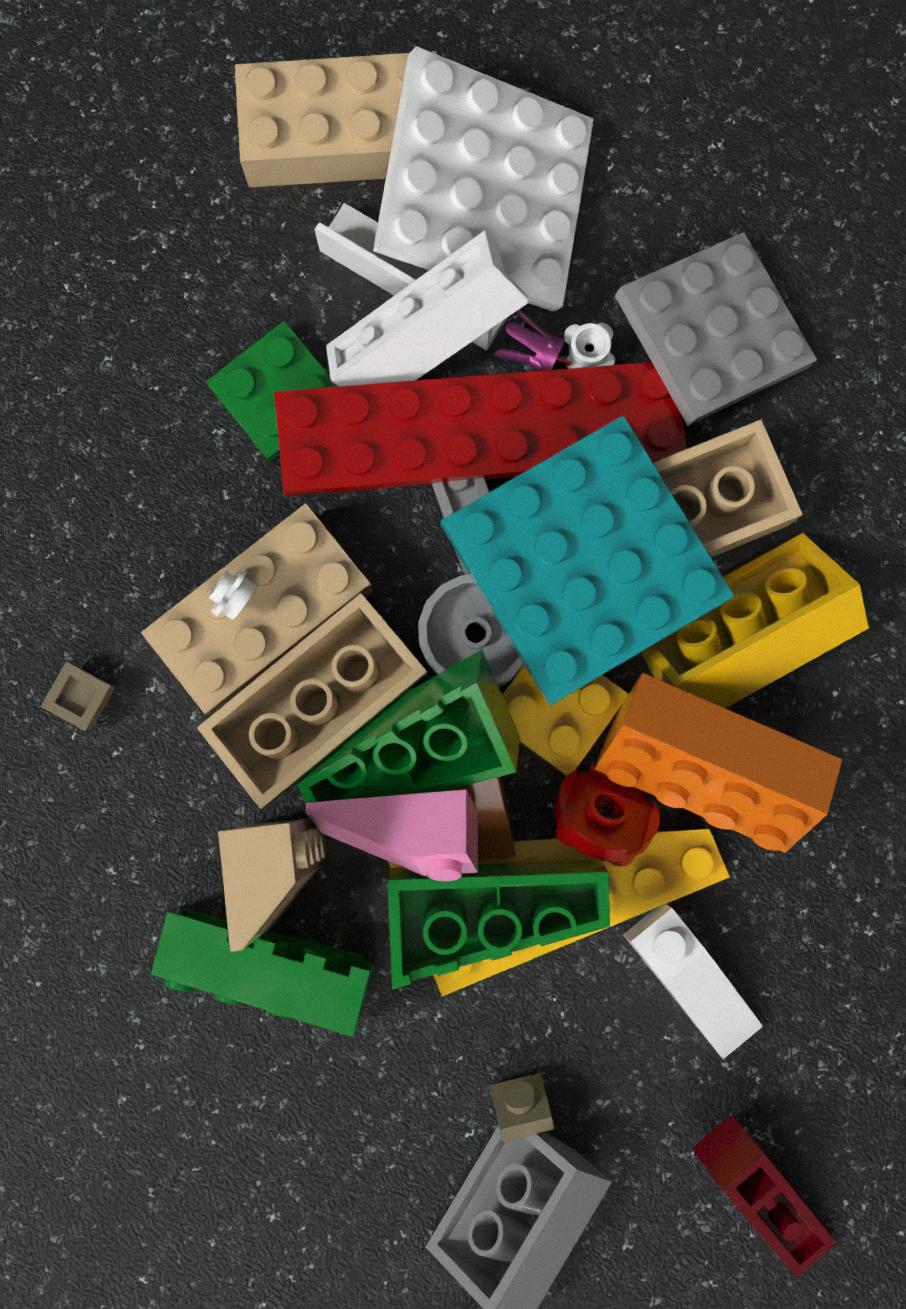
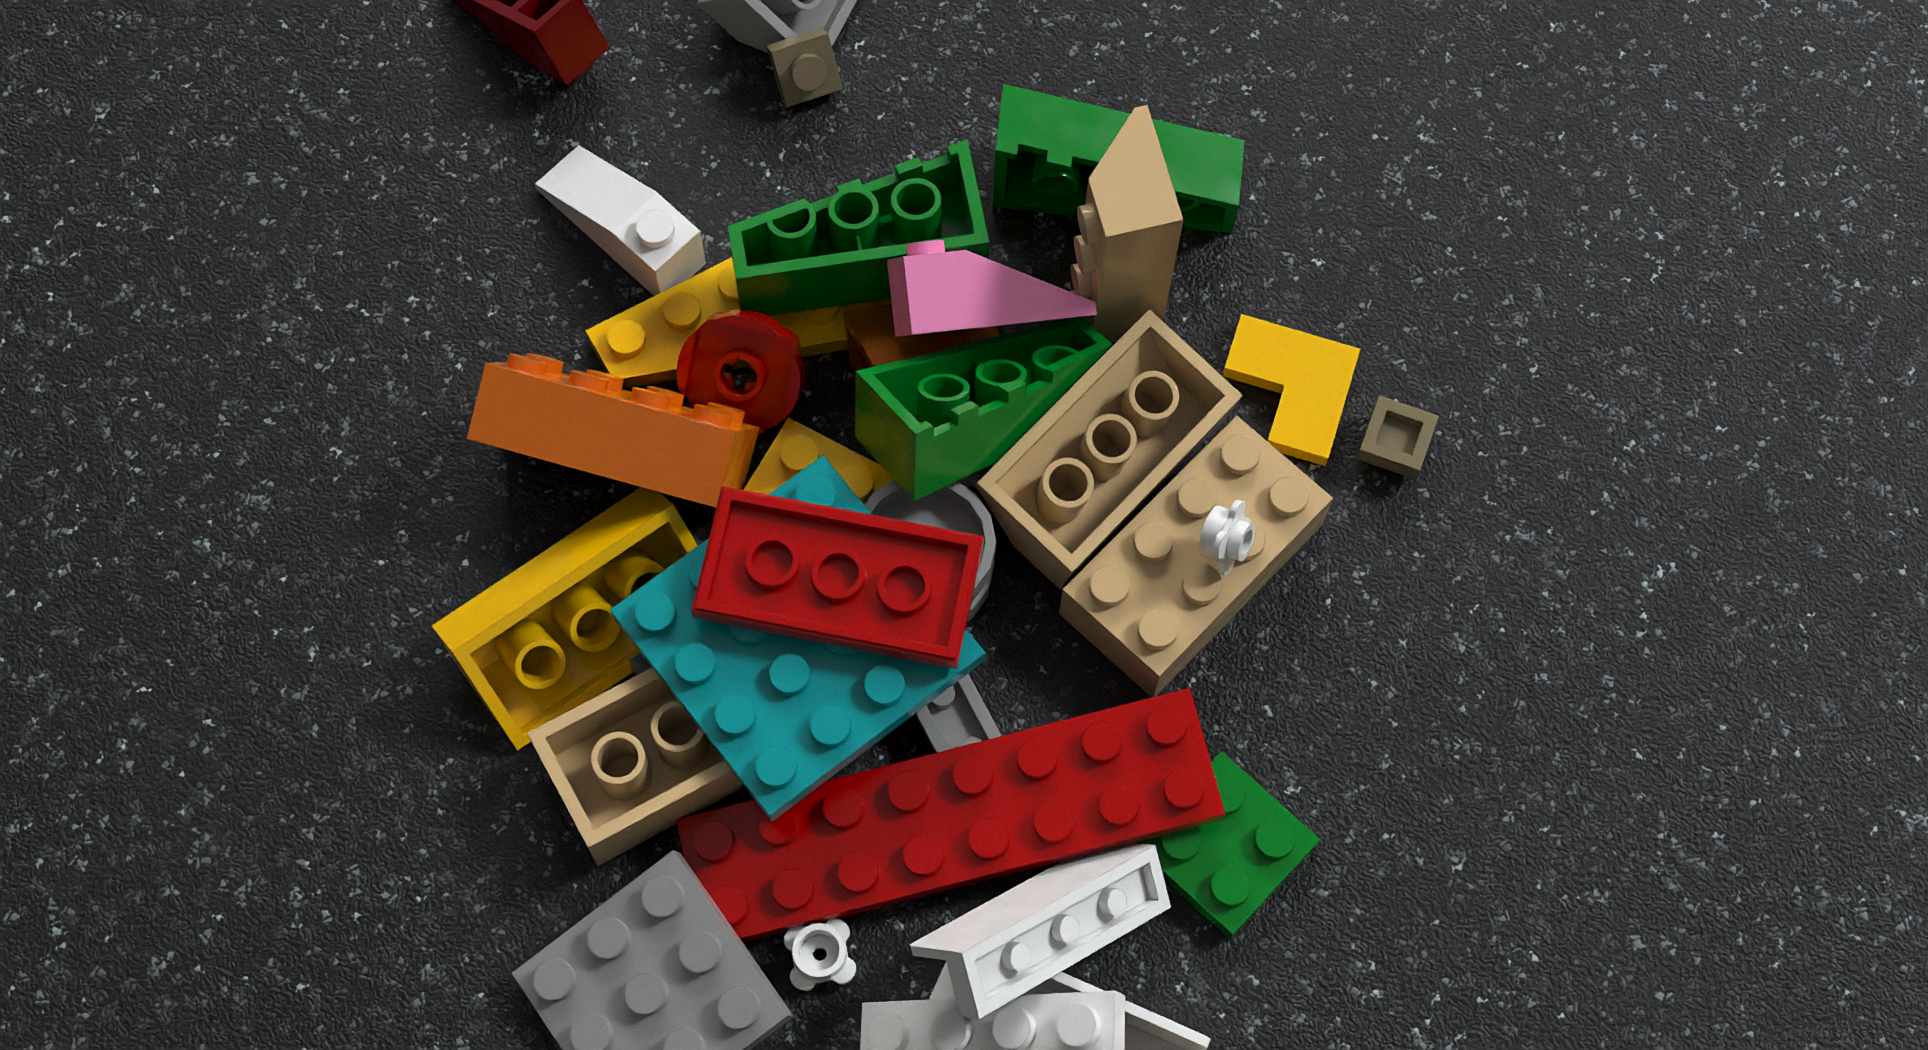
camera: 170 degrees right, 15 degrees down
(138, 763) = (1307, 372): none -> yellow tile
(544, 345) = (882, 929): flat silver piece -> none
(551, 589) = (838, 577): none -> red tile

